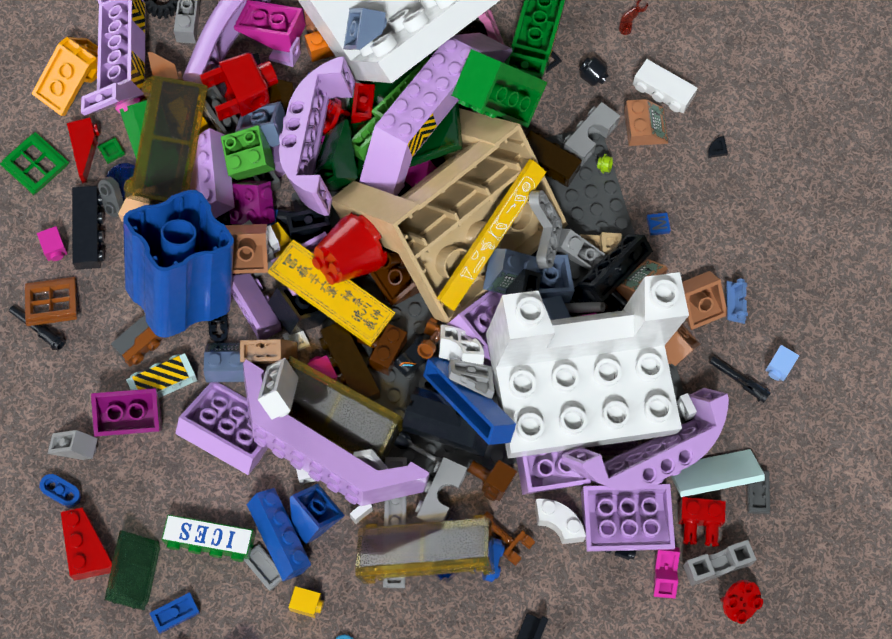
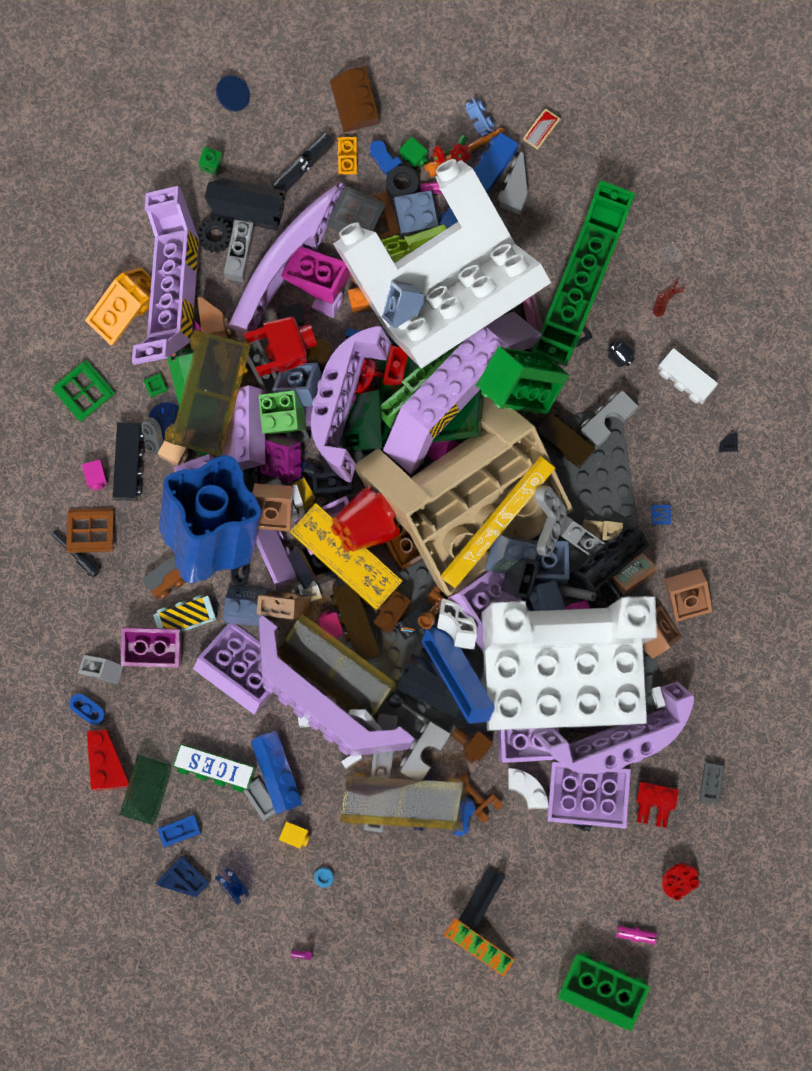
camera: 15 degrees right, 10 degrees up
(84, 144) = (130, 380): red slope -> none
(278, 389) = (288, 647): white brick -> none
(313, 513) = (309, 756): blue slope -> none
(473, 376) = (464, 654): light grey wing -> none
(605, 163) = (618, 451): lime plate -> none
(645, 123) = (663, 412): nougat slope -> none
(666, 573) = (617, 847): dark pink slope -> none
(719, 473) = (678, 763): light aqua tile -> none
(719, 564) = (665, 844): light grey arch -> none
(736, 301) = (721, 600): medium blue hinge -> none
(748, 385) = (726, 687): black pin -> none
(781, 363) = (753, 665): light blue brick -> none

